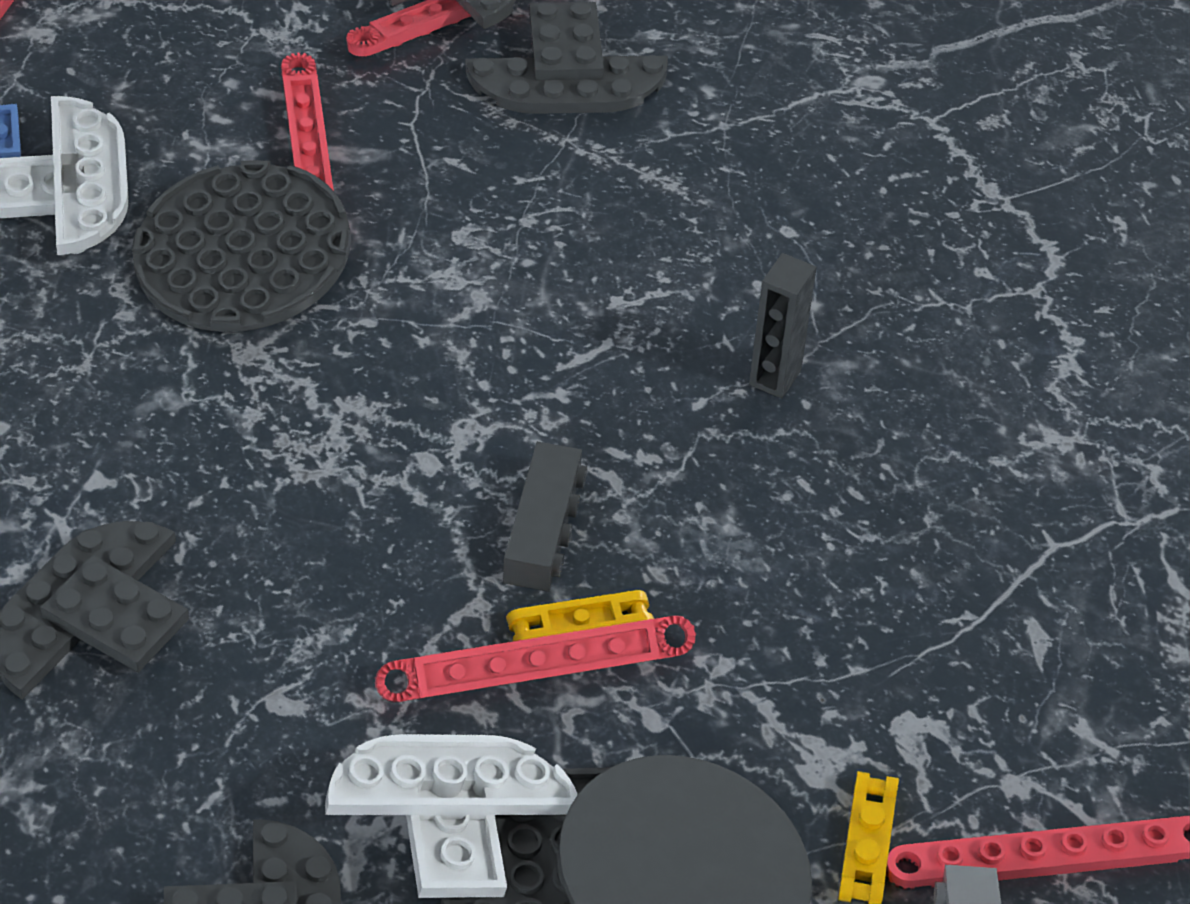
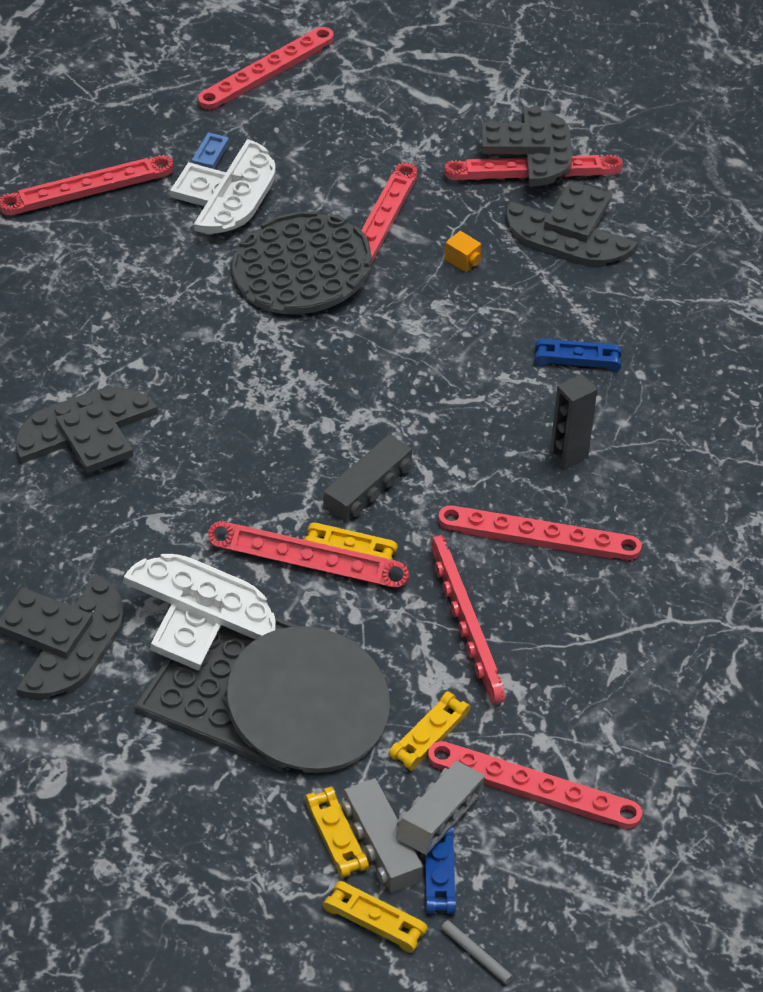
camera: 30 degrees right, 0 degrees up
(452, 149) = (463, 251): none -> light orange brick
(695, 234) = (578, 354): none -> blue plate
(812, 658) = (468, 623): none -> coral plate
(813, 499) = (539, 533): none -> coral plate

